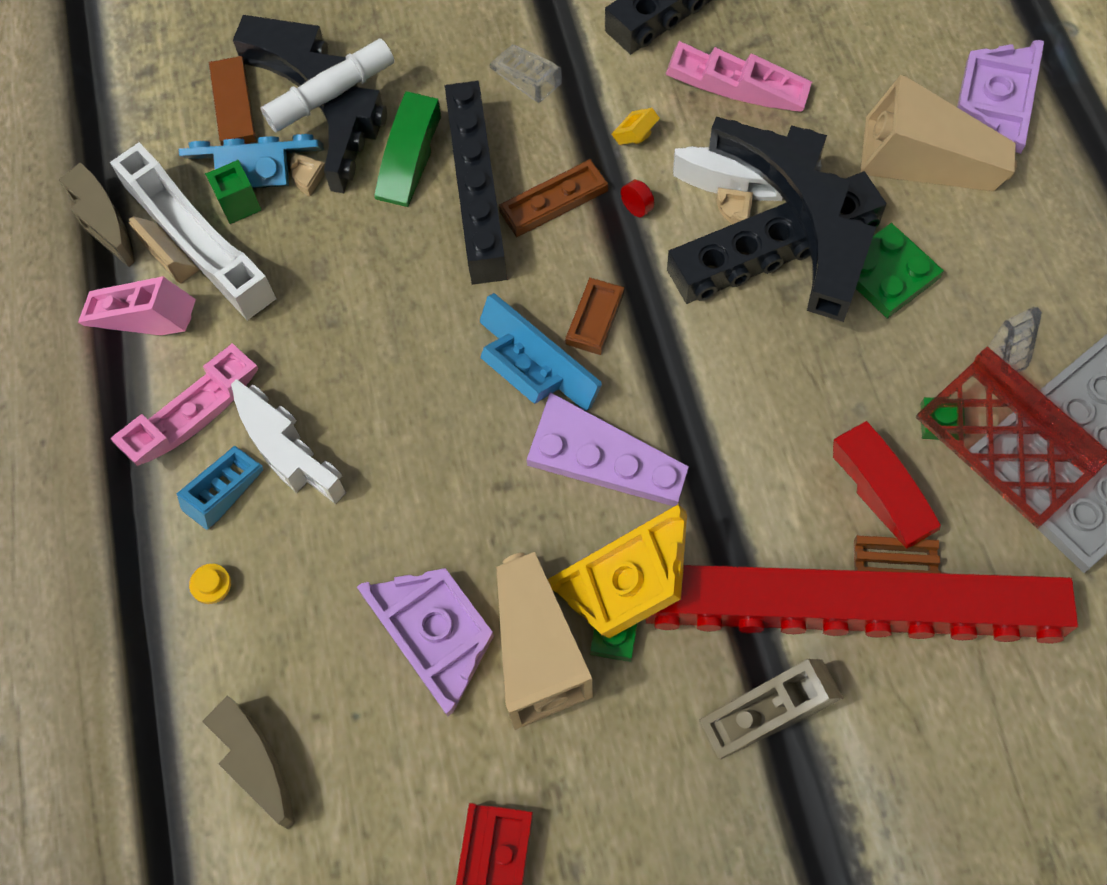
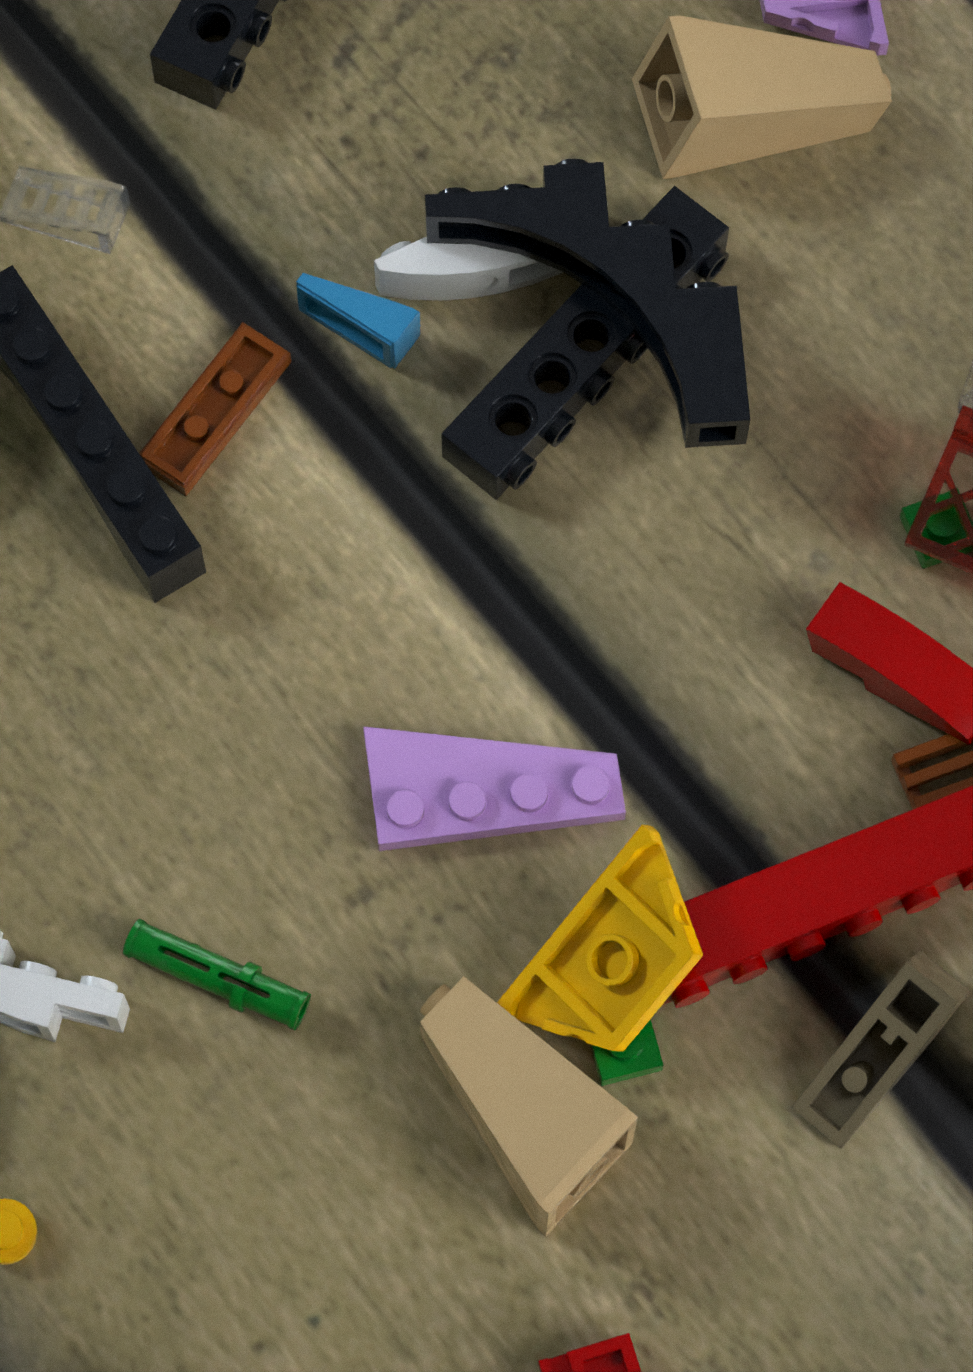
camera: 30 degrees left, 5 degrees up
(427, 524) = (284, 1004): none -> green pin
(433, 629) = (364, 1149): lavender wing -> none
(533, 360) = (312, 687): dark azure bracket -> none
(594, 316) = (370, 577): dark orange tile -> none
(636, 126) = (289, 239): yellow plate -> none
(637, 198) = (348, 360): red tile -> none
(666, 186) = (365, 320): none -> dark azure slope
(734, 204) = (499, 311): tan tile -> none
(747, 81) = (410, 92): bright pink slope -> none
(895, 271) = (784, 322): green plate -> none

